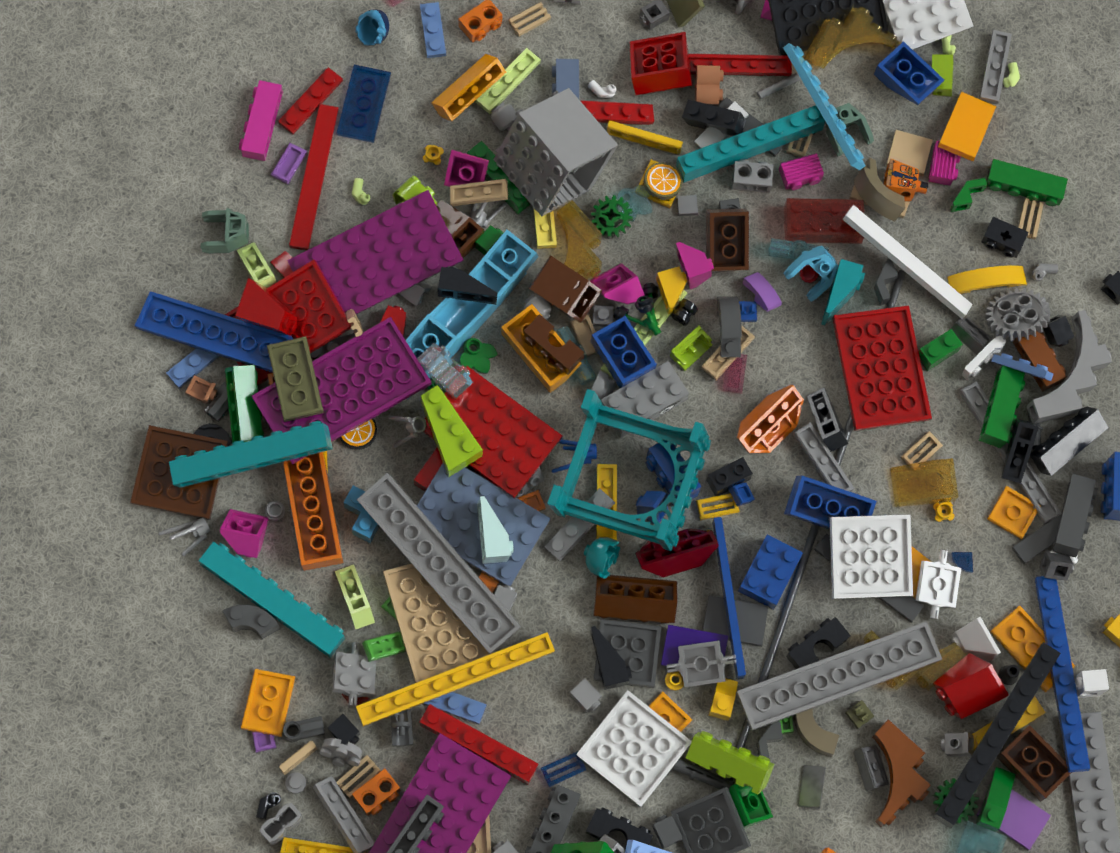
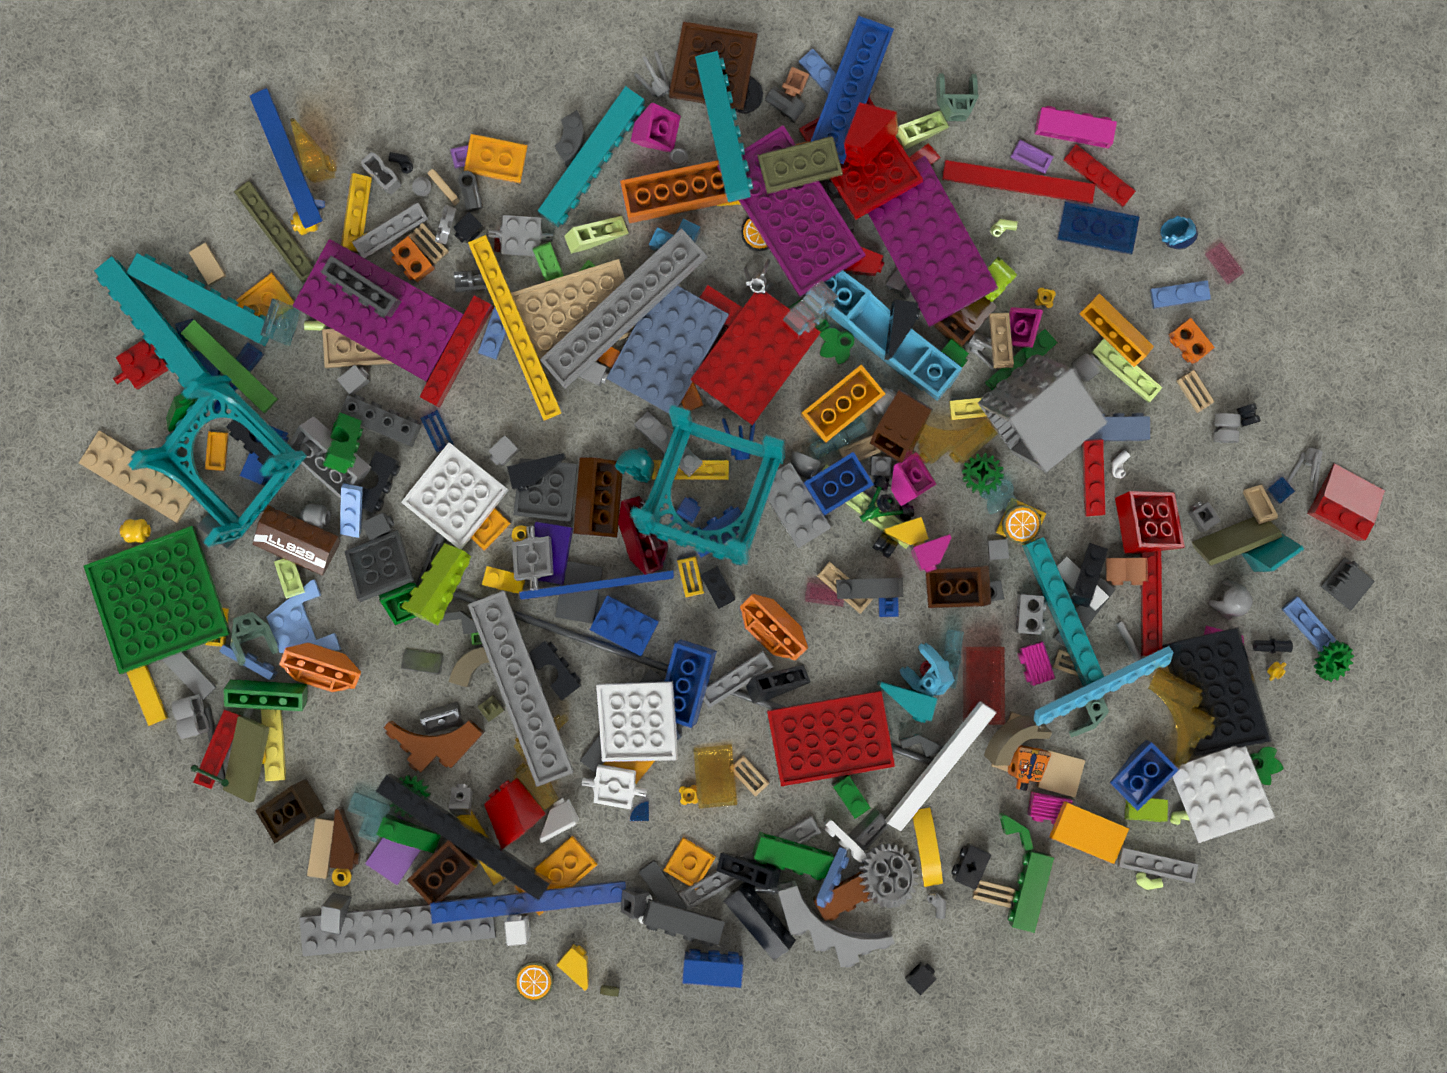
camera: 90 degrees right, 15 degrees up
(243, 411) = (762, 122): green brick -> none
(354, 322) = (861, 221): tan tile -> none
(453, 438) = (746, 315): lime wedge -> none
(493, 536) = (644, 358): light aqua slope -> none
(564, 357) = (852, 400): reddish brown arch -> none
(644, 137) = (1068, 506): yellow tile -> none
(691, 348) = (848, 552): lime hinge -> none
(741, 494) = (702, 599): blue tile -> none
(764, 292) = (908, 623): medium lavender slope -> none
(1005, 676) = (533, 848): black cone -> none
(1058, 331) = (873, 916): black brick -> none

